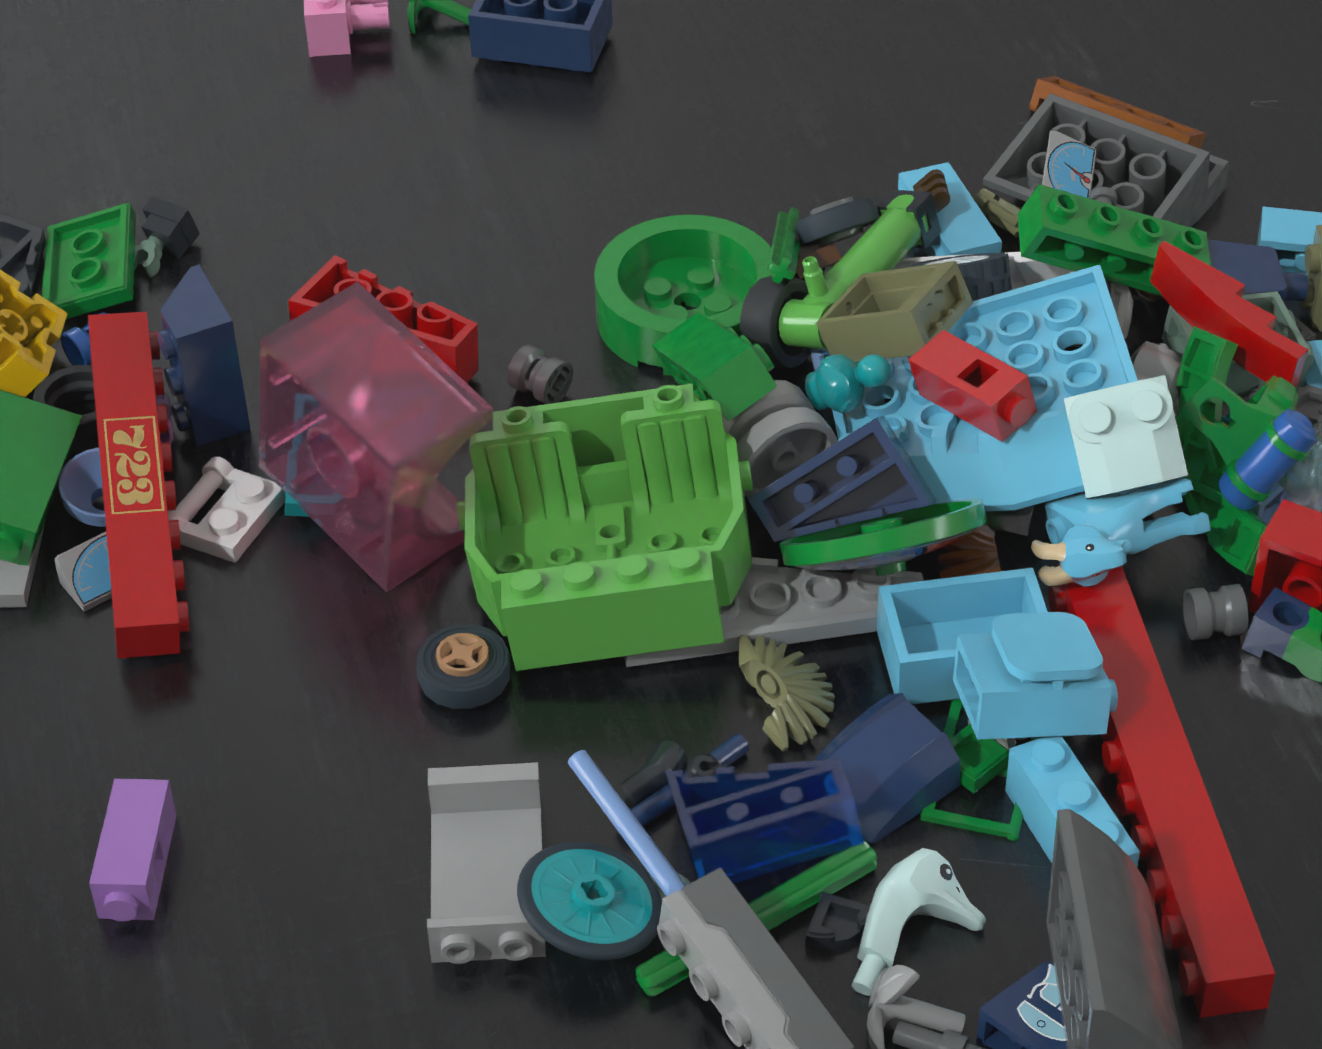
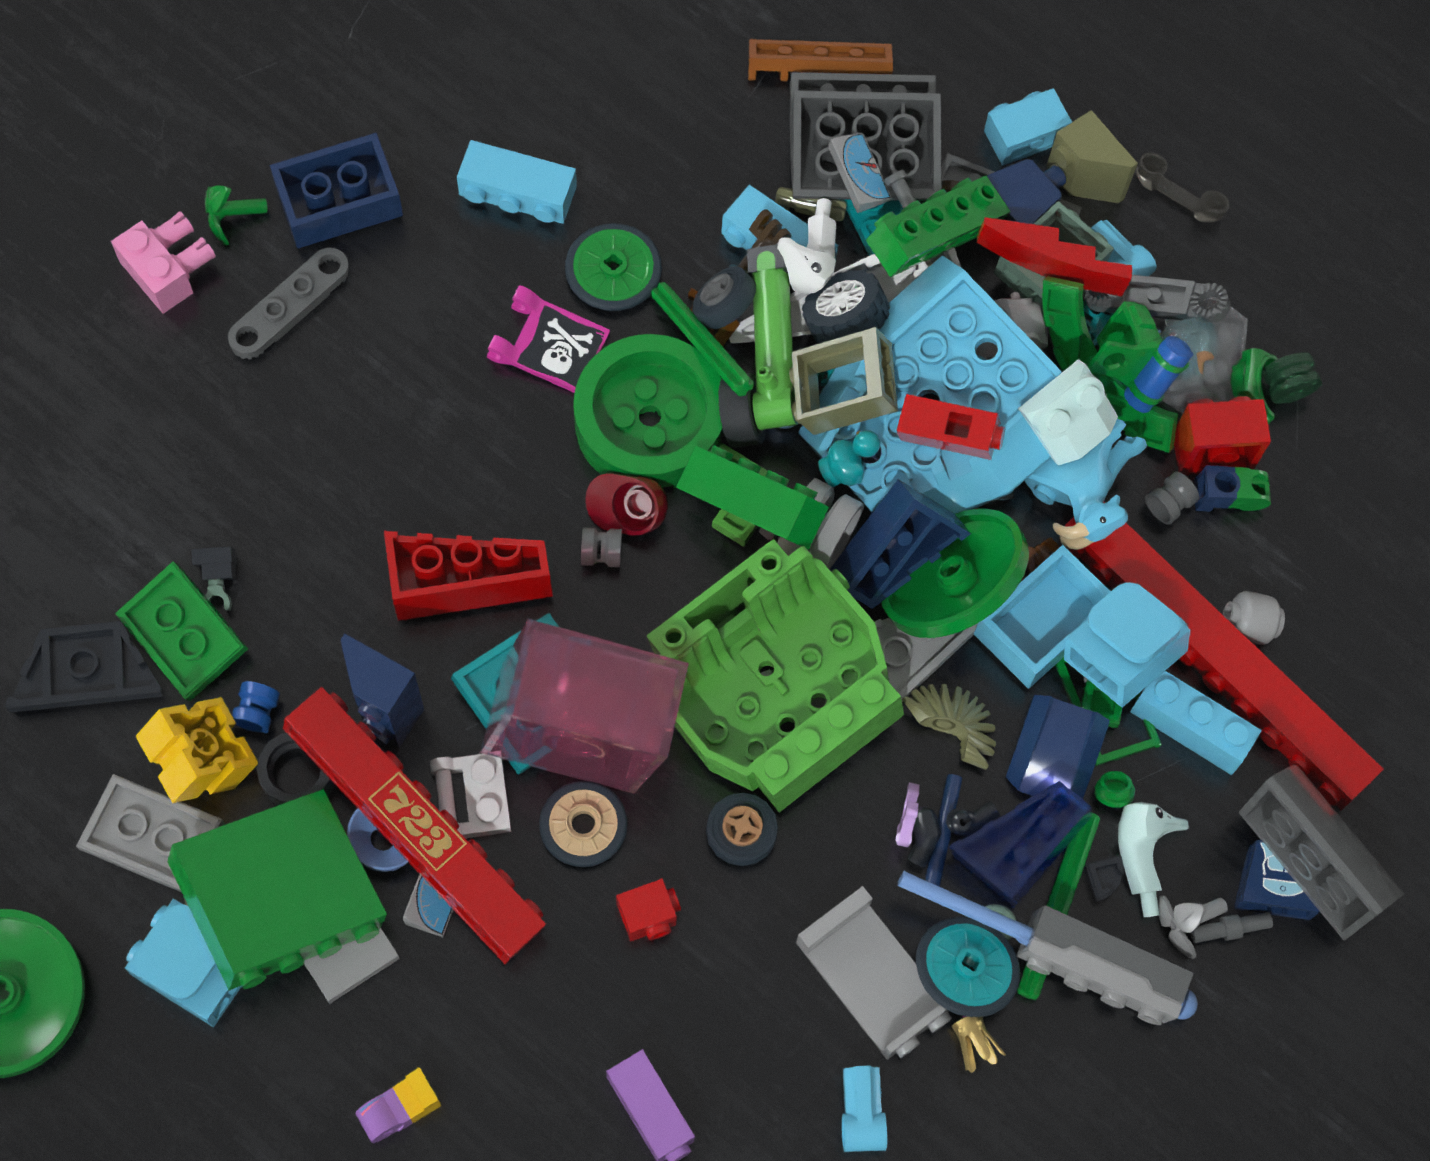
camera: 40 degrees left, 25 degrees up
(298, 680) = (648, 910): none -> red brick
(336, 596) = (587, 848): none -> wheel
(346, 992) = (863, 1122): none -> medium azure piece
(425, 88) = (288, 303): none -> dark grey plate
(544, 974) = (974, 1030): none -> pearl gold piece
(601, 351) = (626, 503): none -> dark red cap
(638, 710) = (908, 817): none -> lavender helmet
(644, 200) = (552, 342): none -> flag
(721, 84) = (516, 182): none -> medium azure brick
(758, 183) = (609, 289): none -> green wheel
(917, 834) = (1115, 789): none -> green plate
(950, 230) = (812, 265): none -> white animal
(1229, 762) = (1256, 616): none -> light grey head

